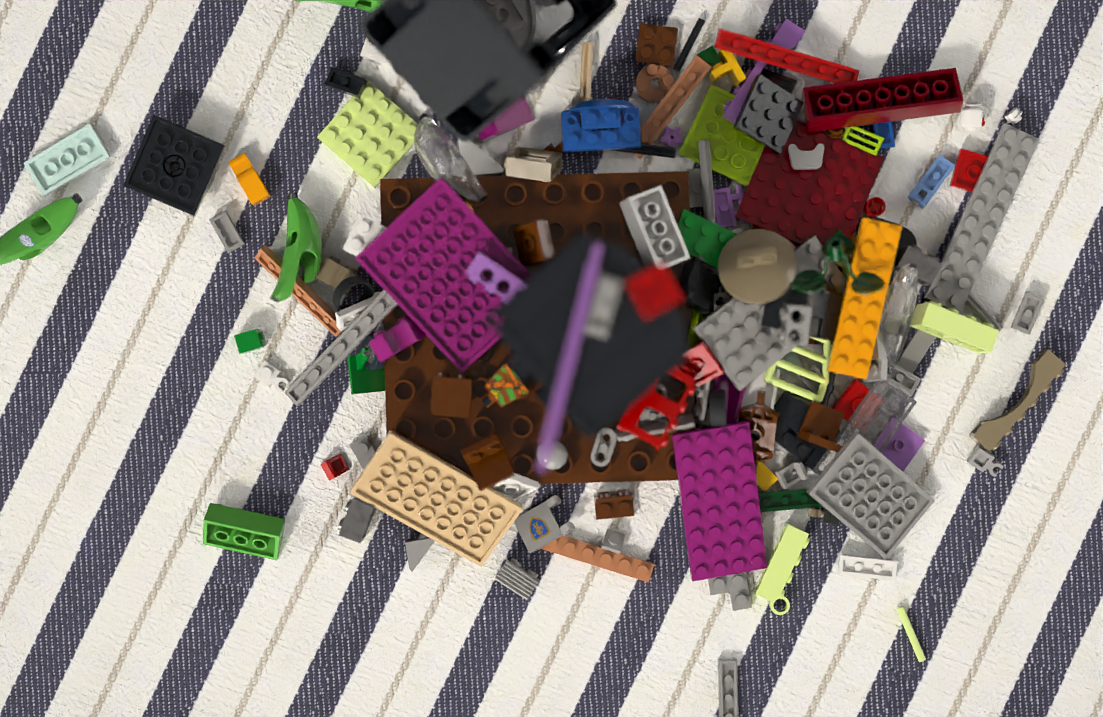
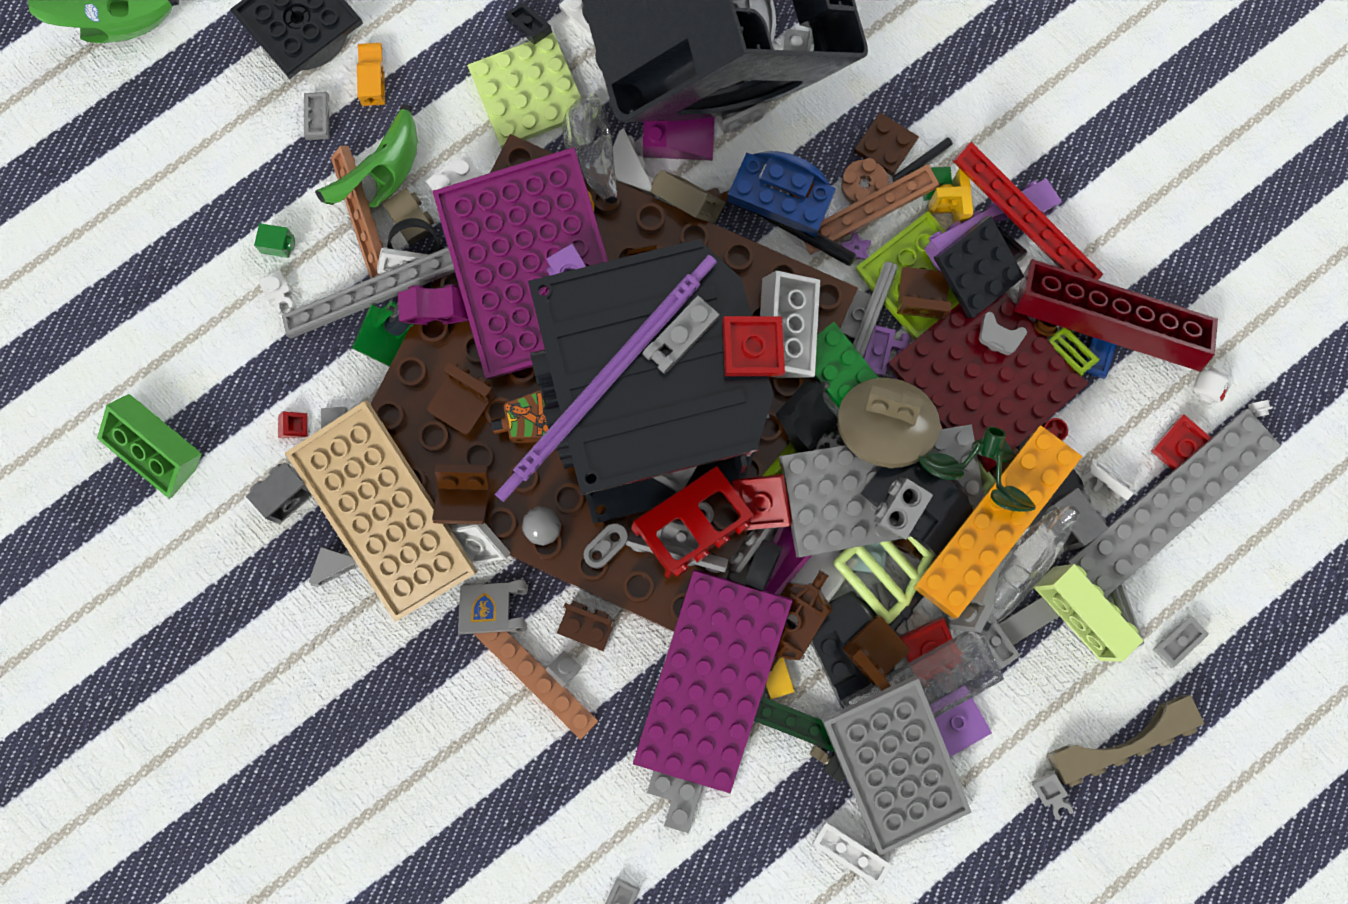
camera: 25 degrees right, 10 degrees down
(517, 578) = (429, 657): light grey brick -> none
(586, 72) = (798, 128): tan axle -> none
(736, 151) = (923, 293): none -> reddish brown bracket
(780, 566) = (747, 799): yellowish green hinge -> none
(792, 474) = (813, 694): light grey bracket -> none
(931, 180) = (1132, 434): medium blue plate -> none
(932, 222) = (1115, 484): none -> white plate

